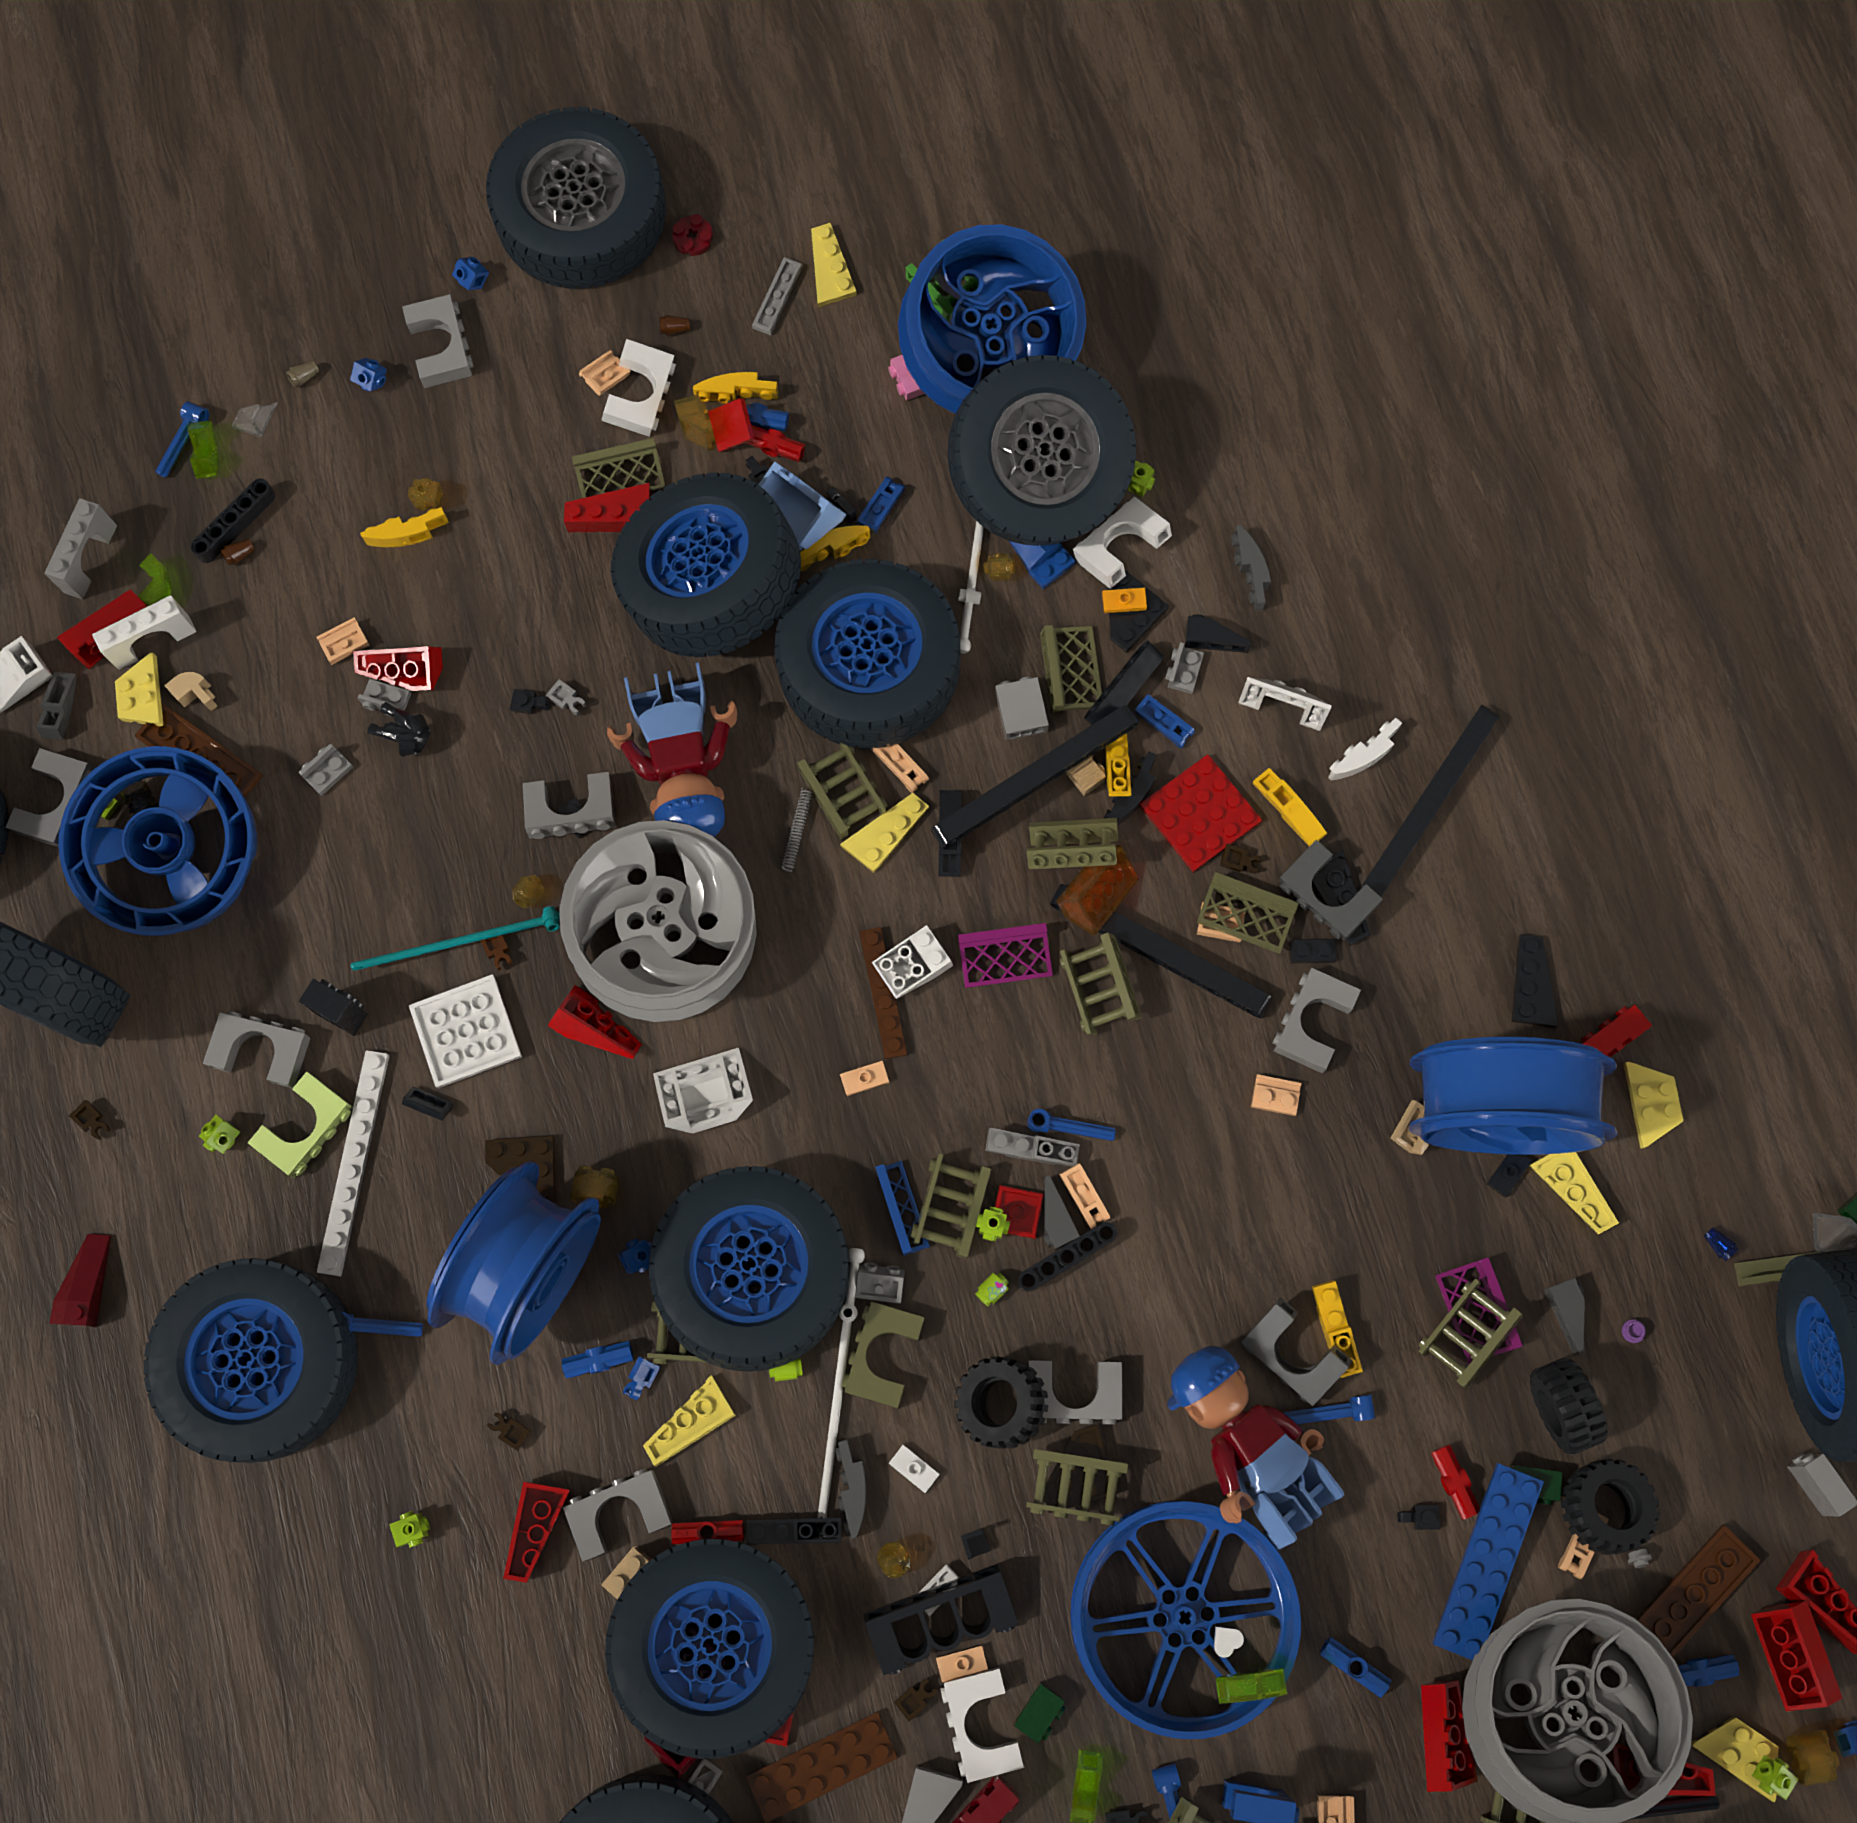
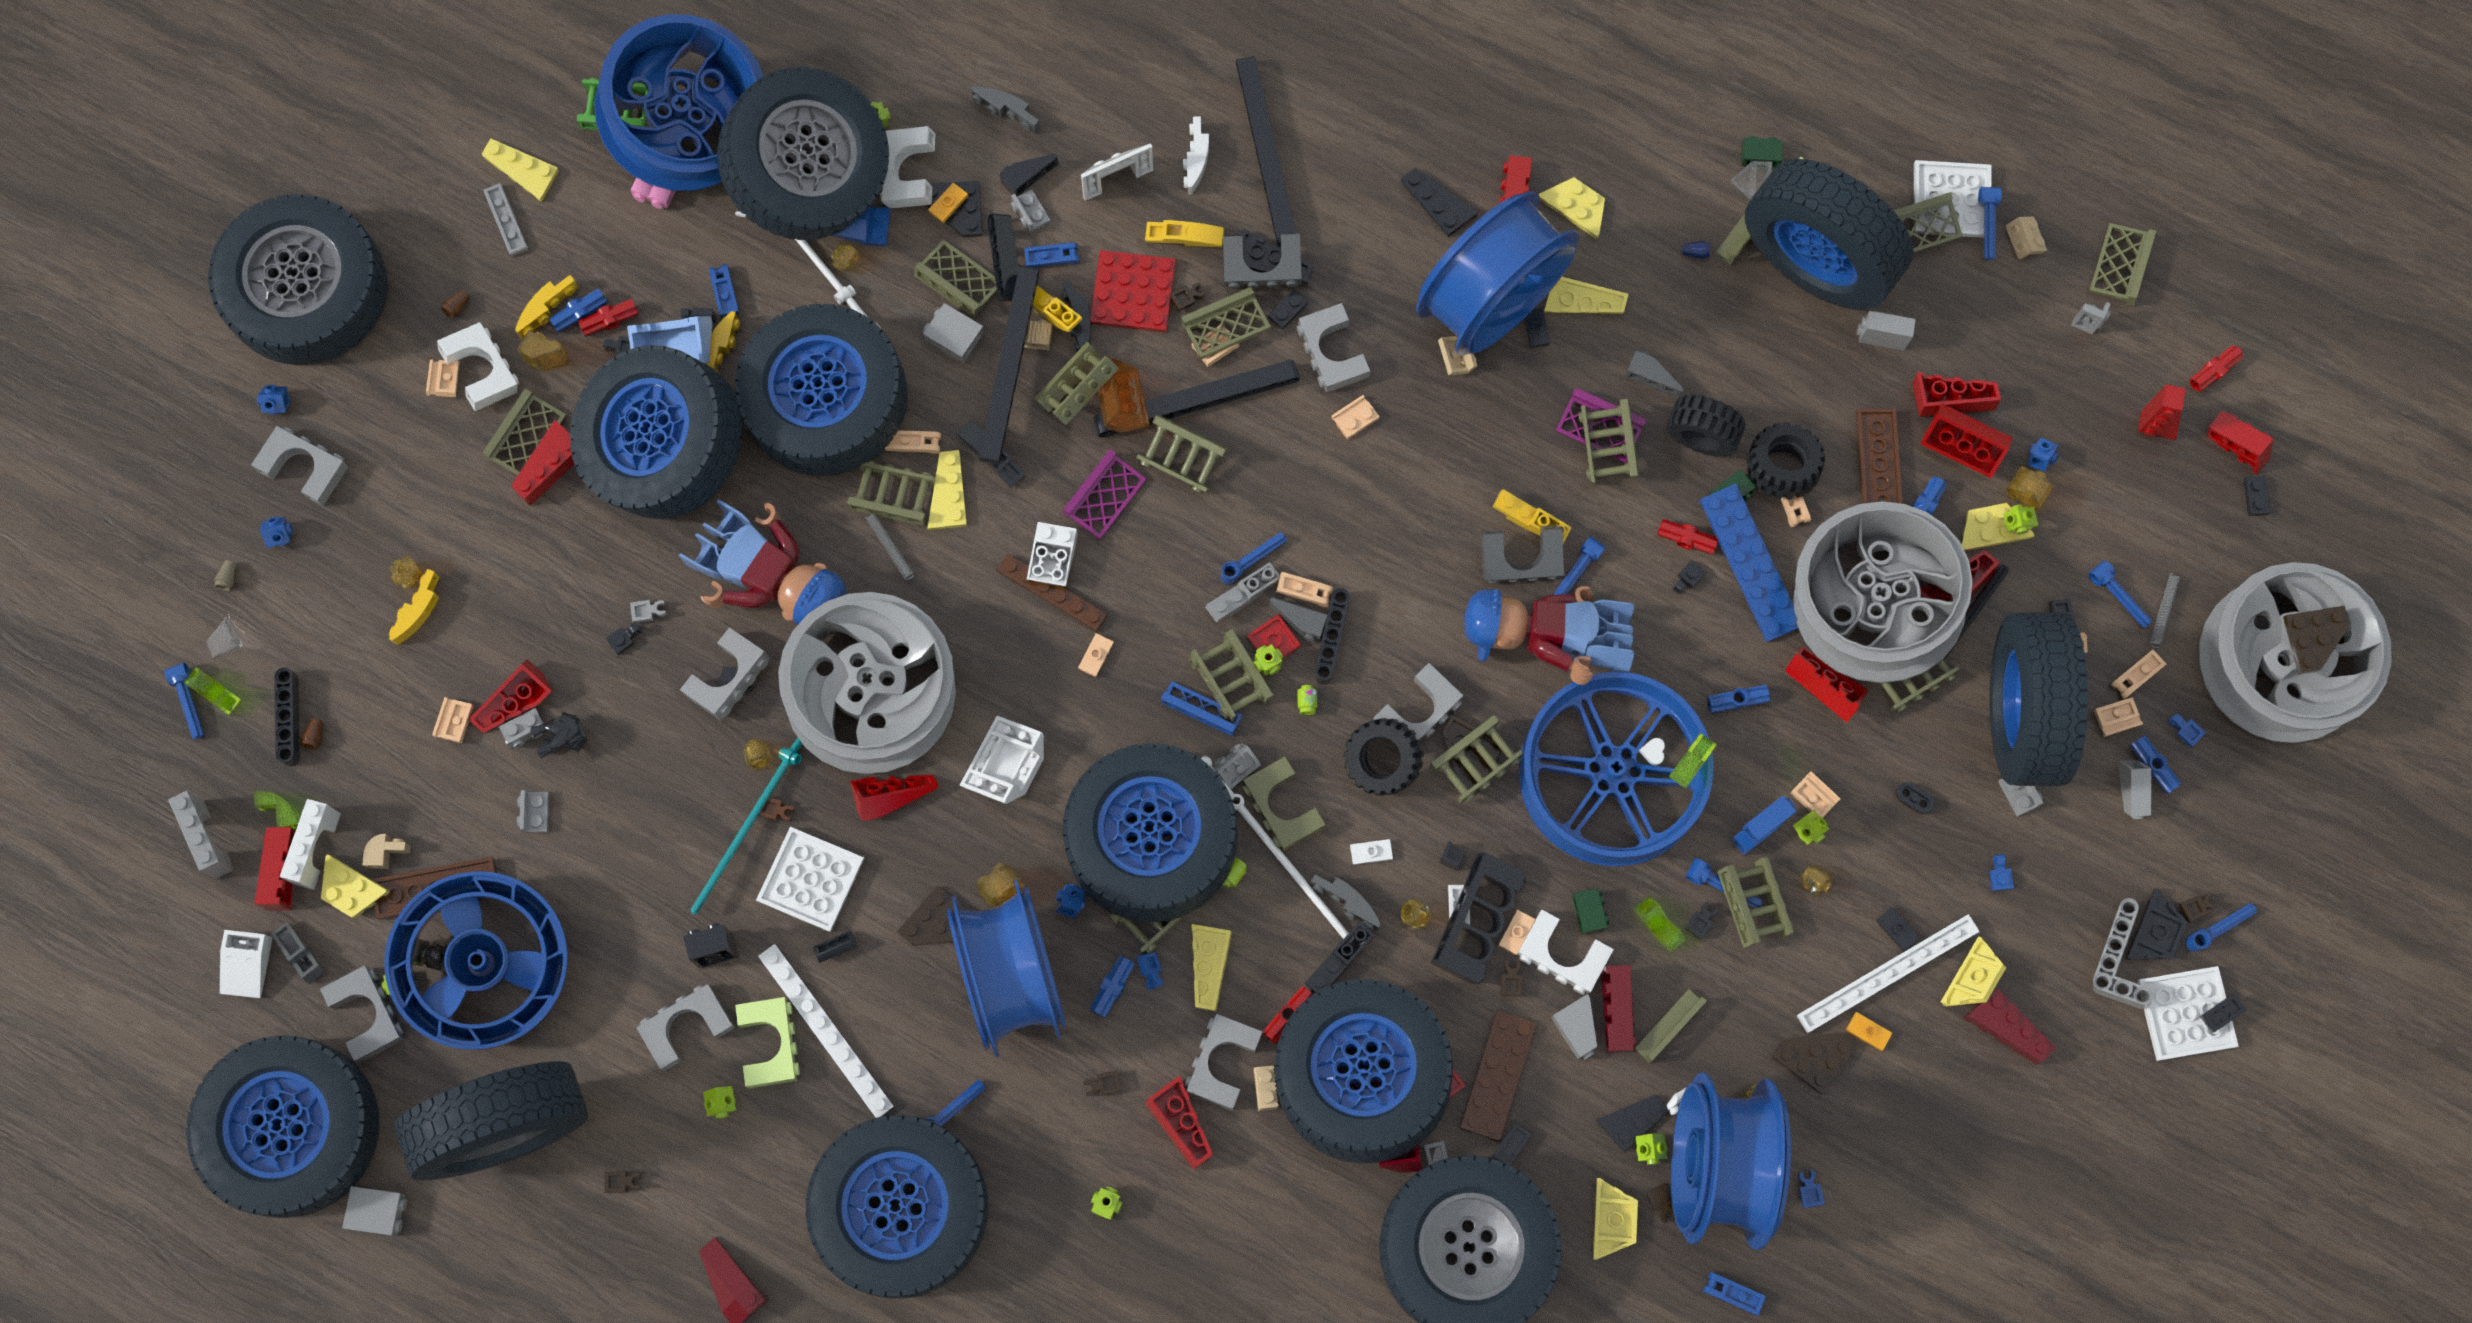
camera: 50 degrees left, 0 degrees up
(689, 225) = (398, 223): dark red plate -> none
(731, 425) = (569, 330): red tile -> none
(1633, 1331) = (1698, 349): medium lavender plate -> none
(1639, 1558) = (1830, 475): light grey plate -> none

